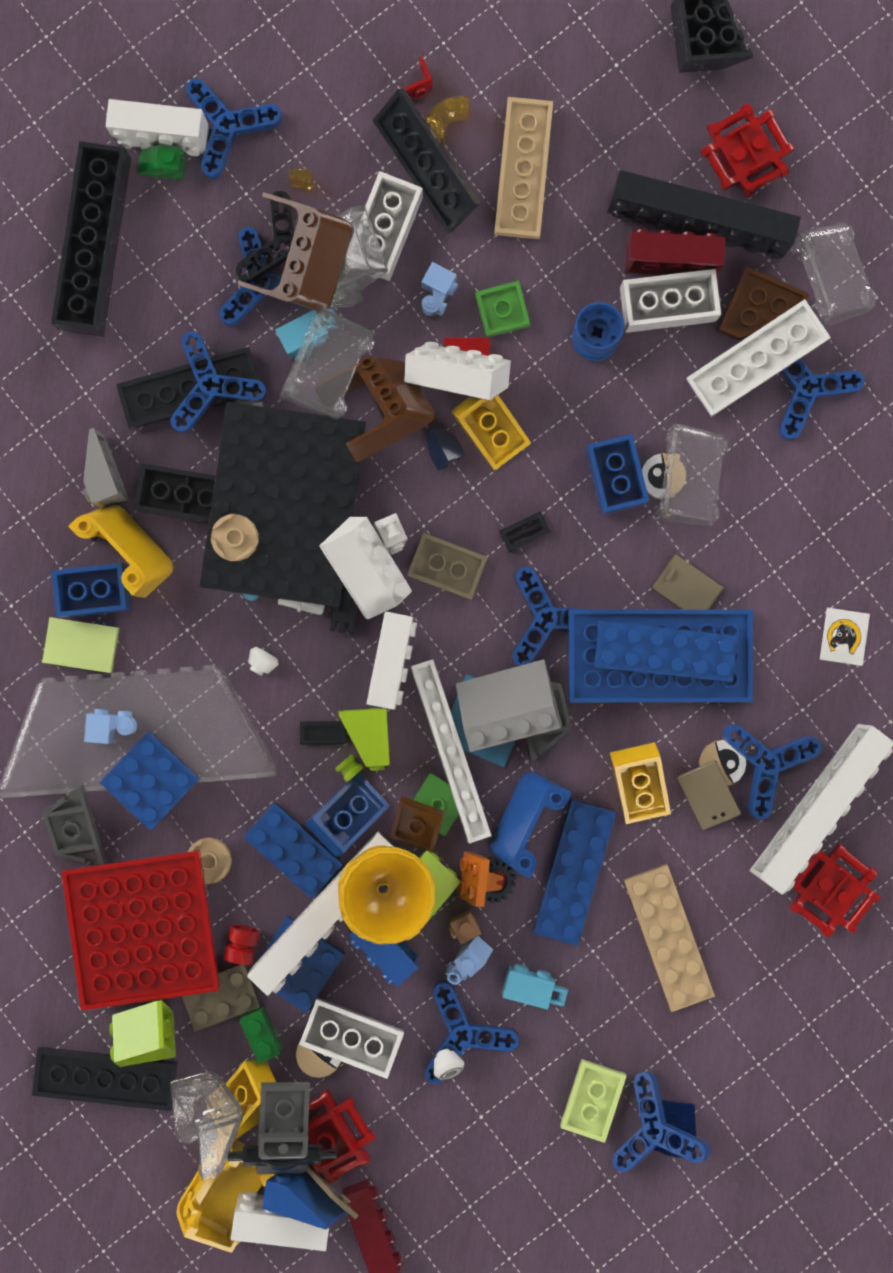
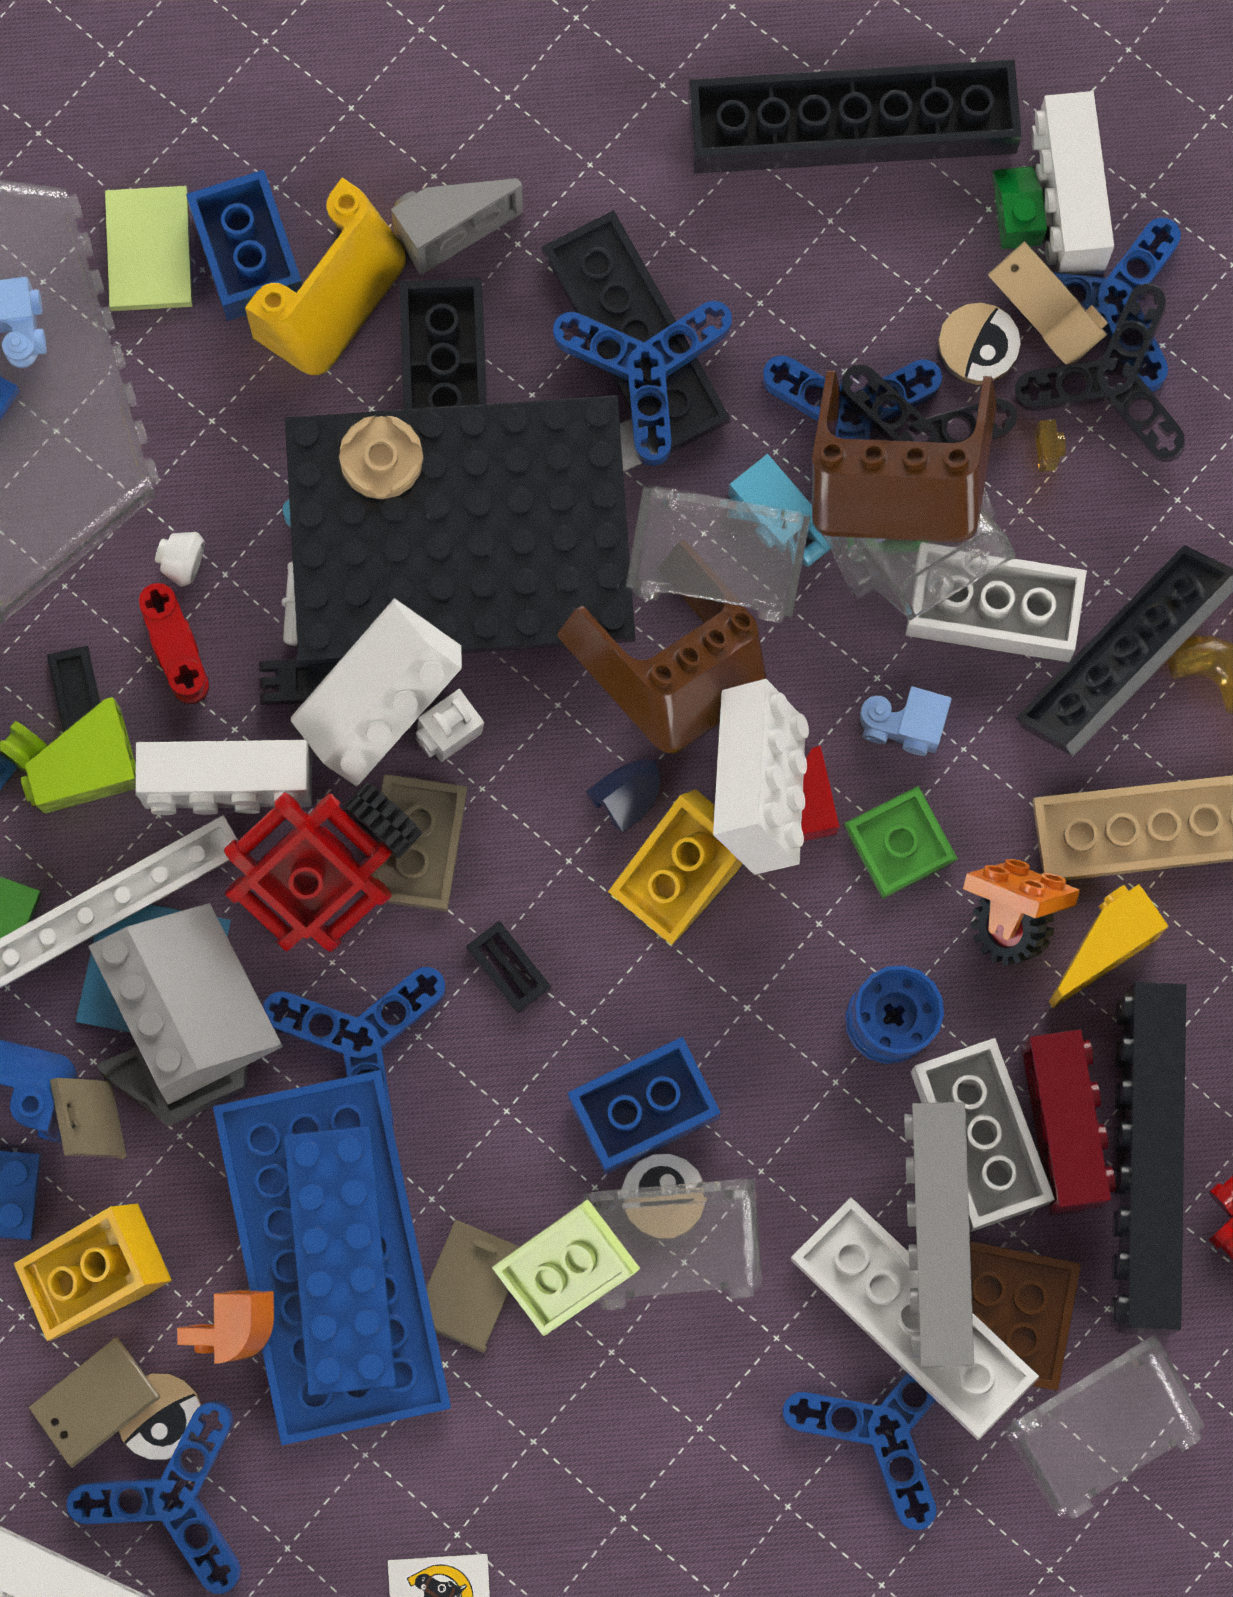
camera: 80 degrees right, 10 degrees down
(223, 158) = (1049, 304): none -> tan door
(235, 203) = (979, 343): none -> tile
(284, 133) = (1098, 385): none -> black piece
(309, 674) = (173, 643): none -> red piece
(436, 579) = (382, 819): none -> black tyre
(457, 625) = (307, 873): none -> red brick
(554, 253) = (1016, 909): none -> orange plate
(562, 770) = (88, 1118): none -> dark tan container
(582, 210) = (1120, 931): none -> yellow slope
(690, 713) = (239, 1329): none -> orange brick
(695, 533) = (566, 1267): none -> yellowish green tile
(724, 330) = (942, 1234): none -> light grey brick

